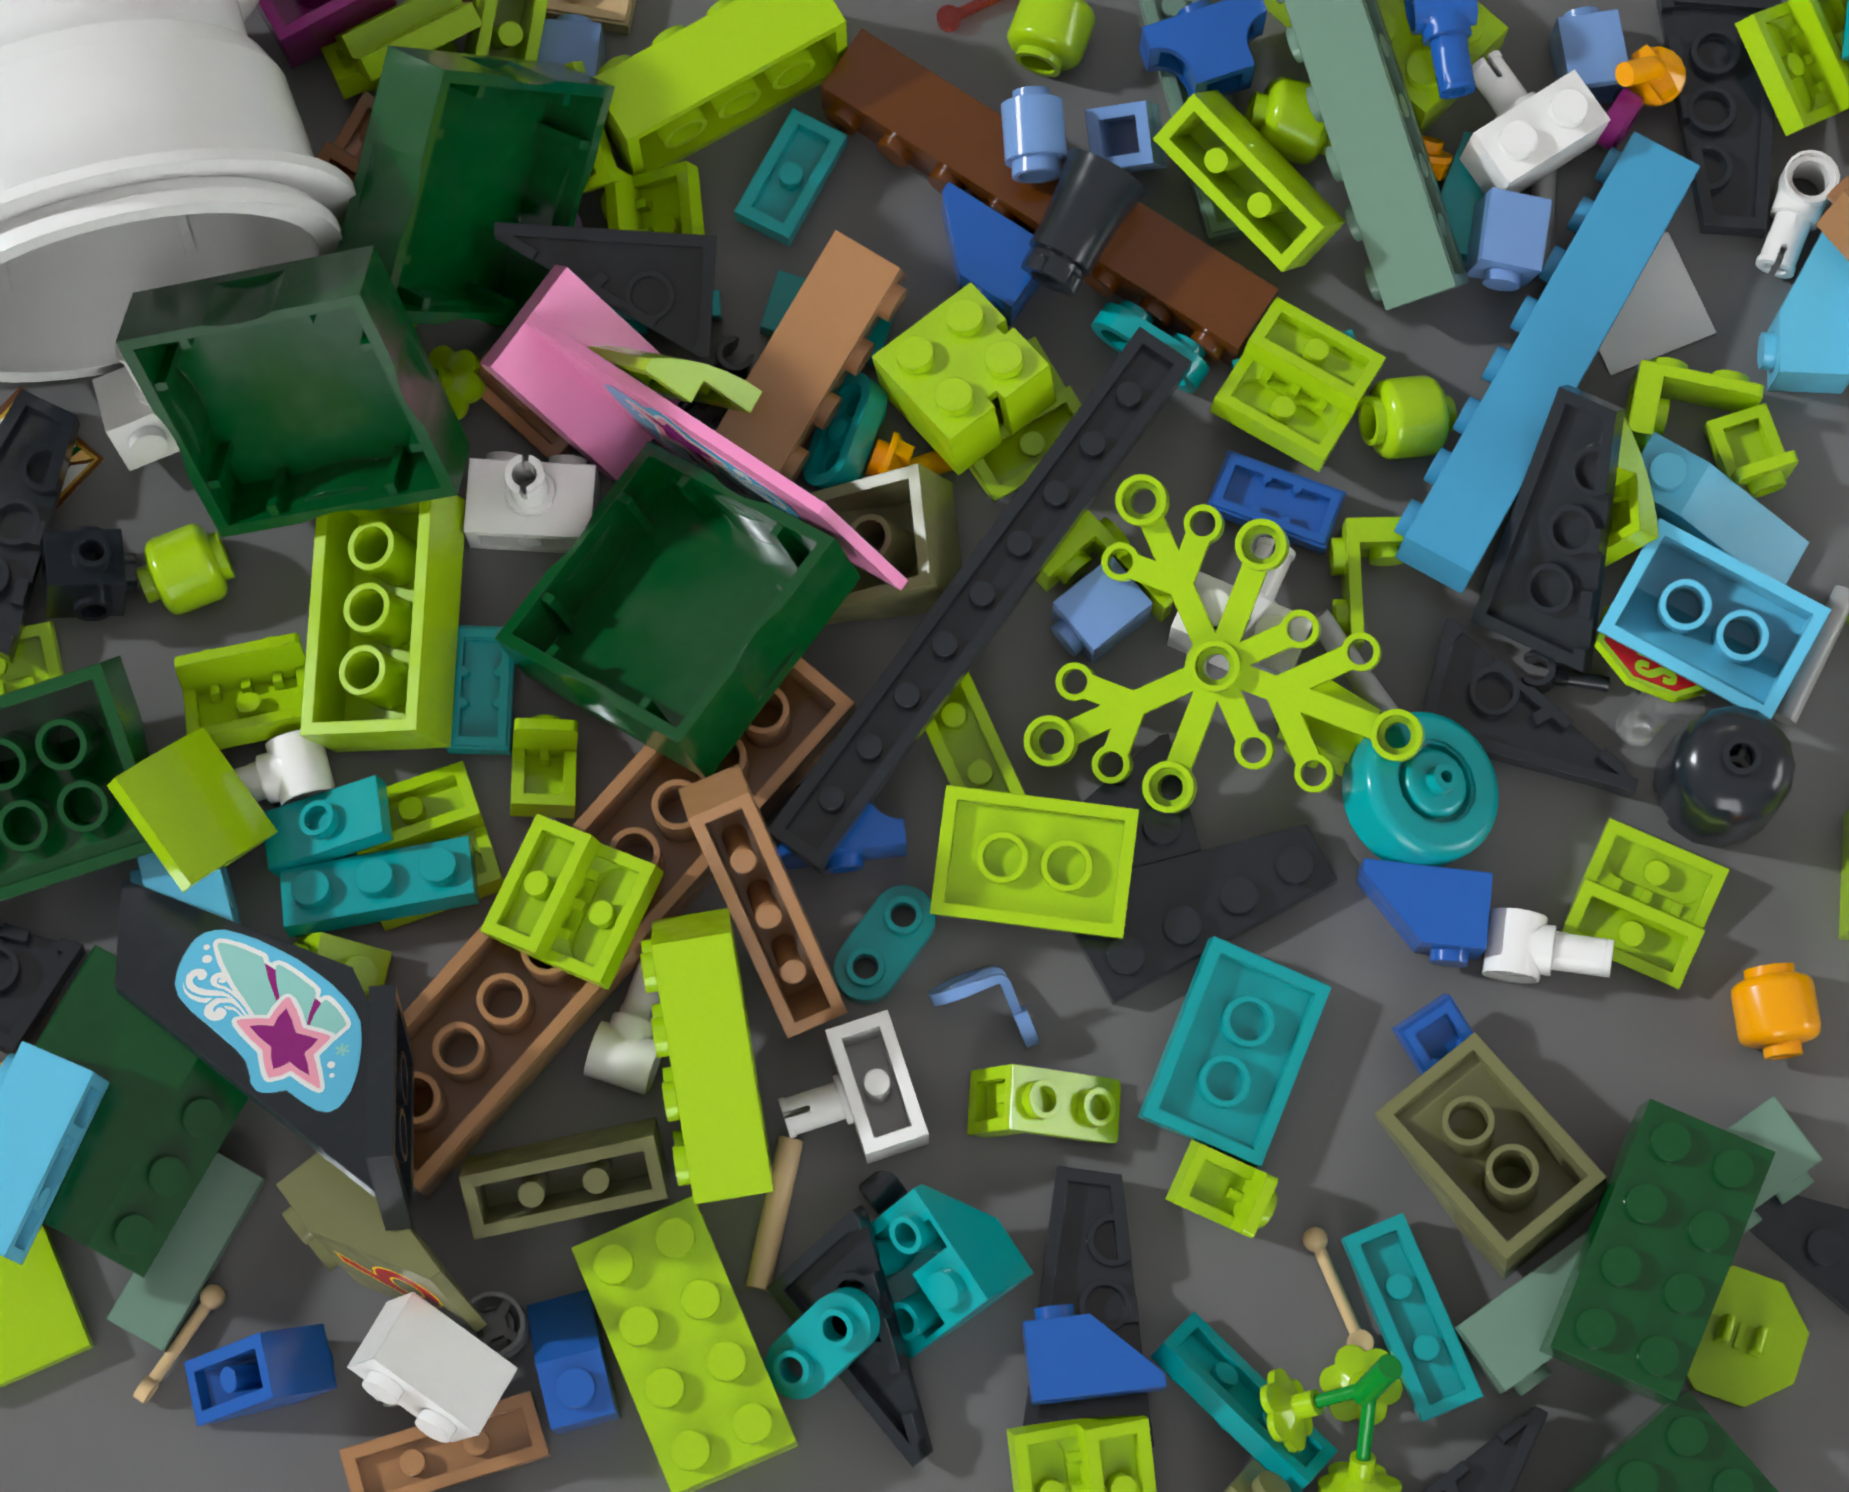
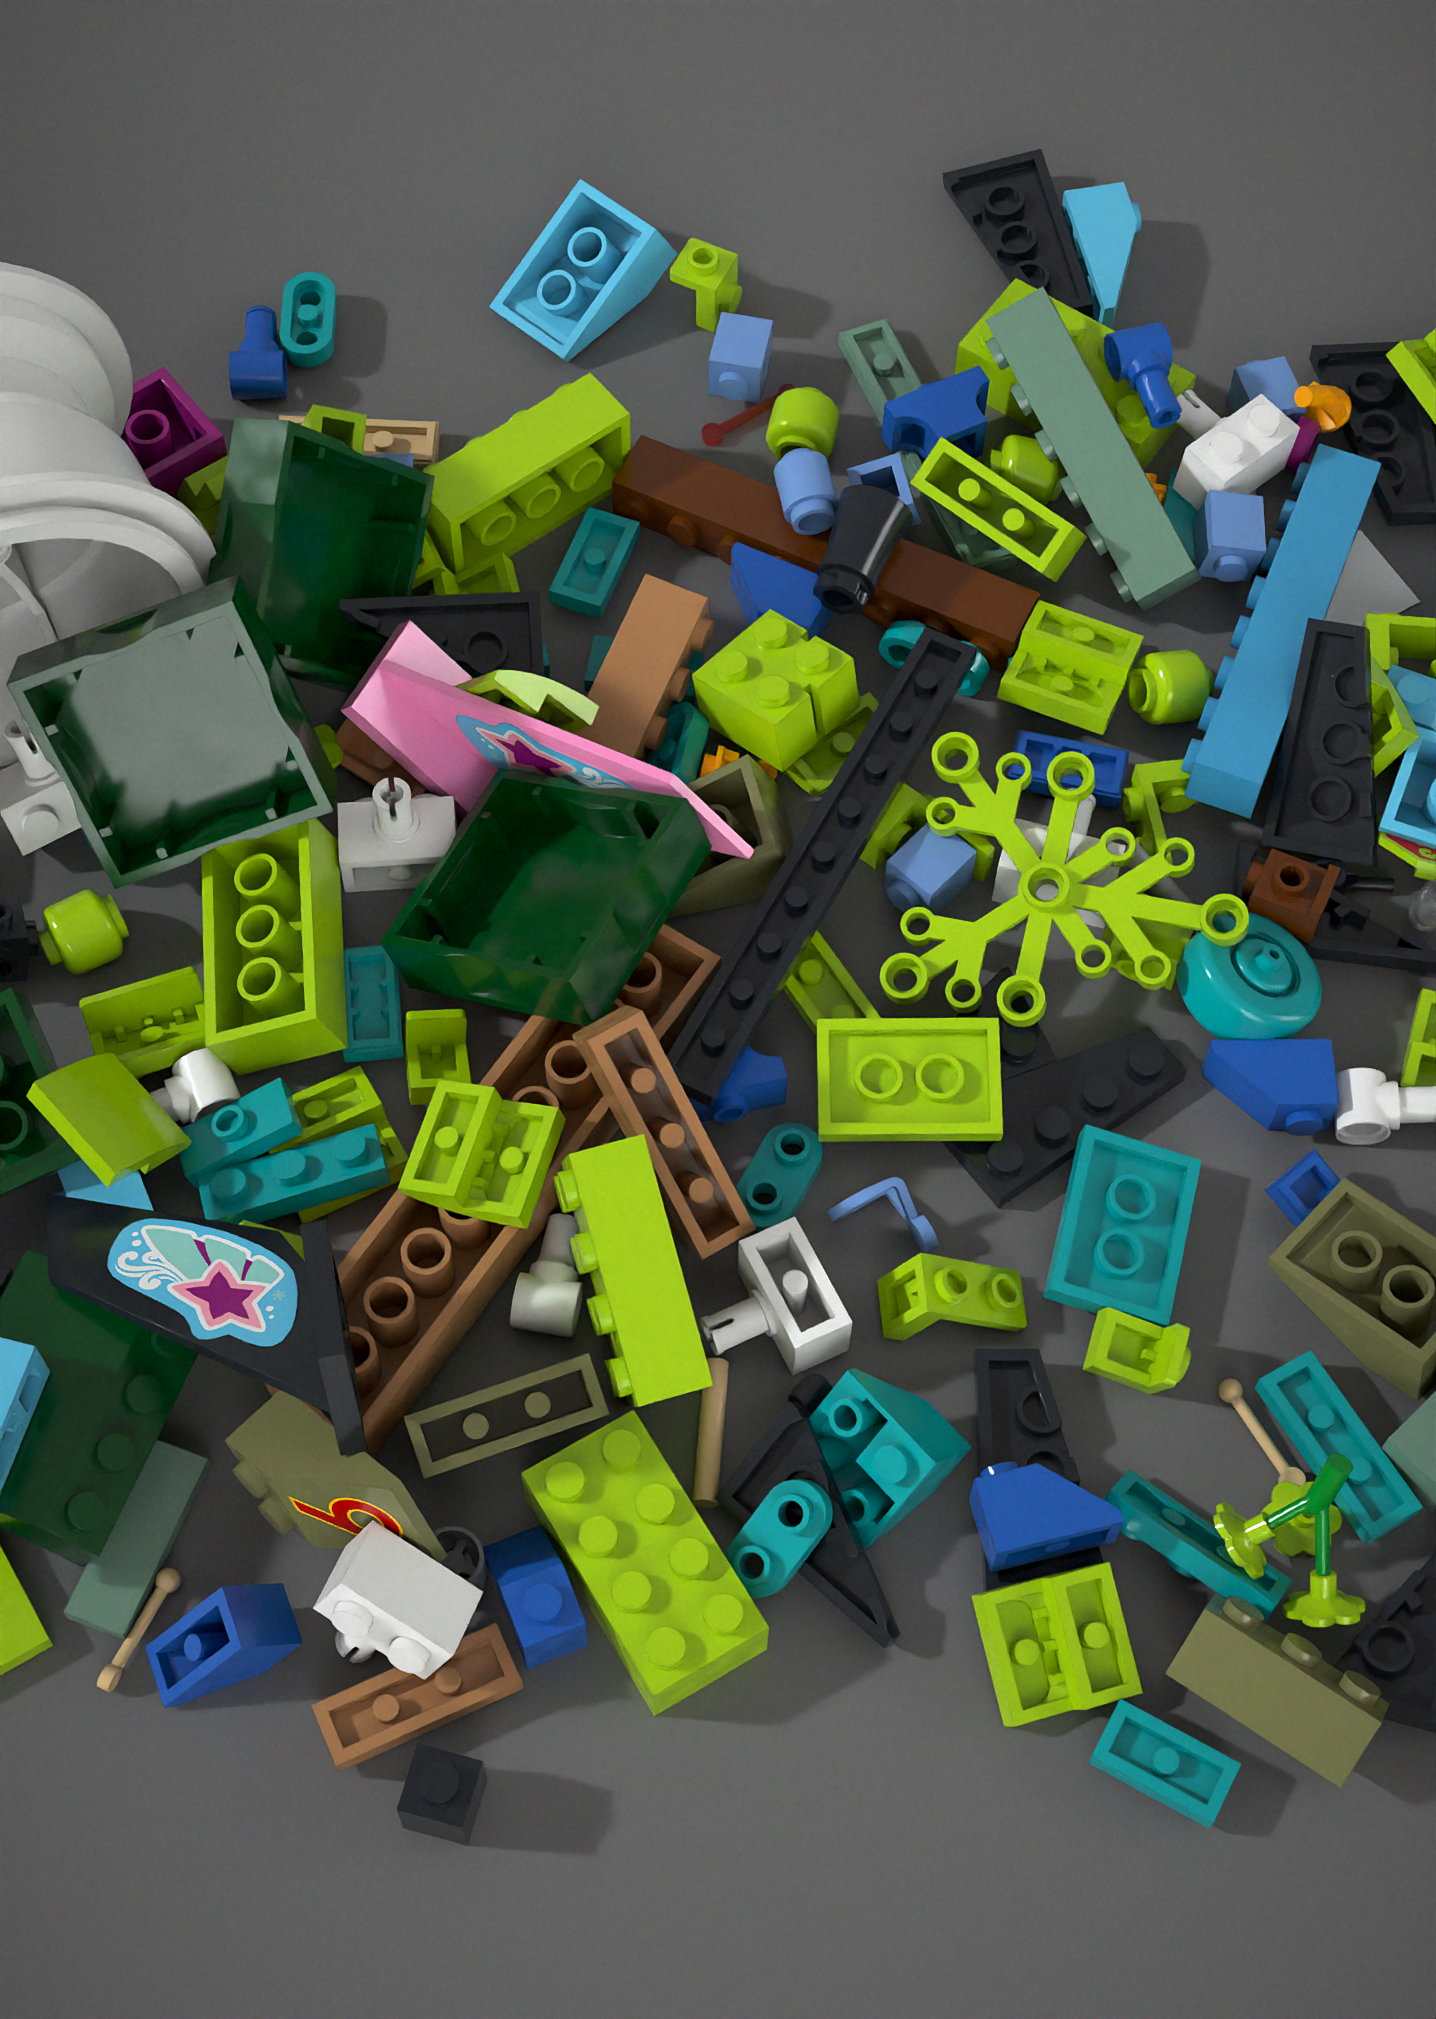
camera: 10 degrees left, 15 degrees down
(1485, 719) = (1290, 892): none -> reddish brown brick

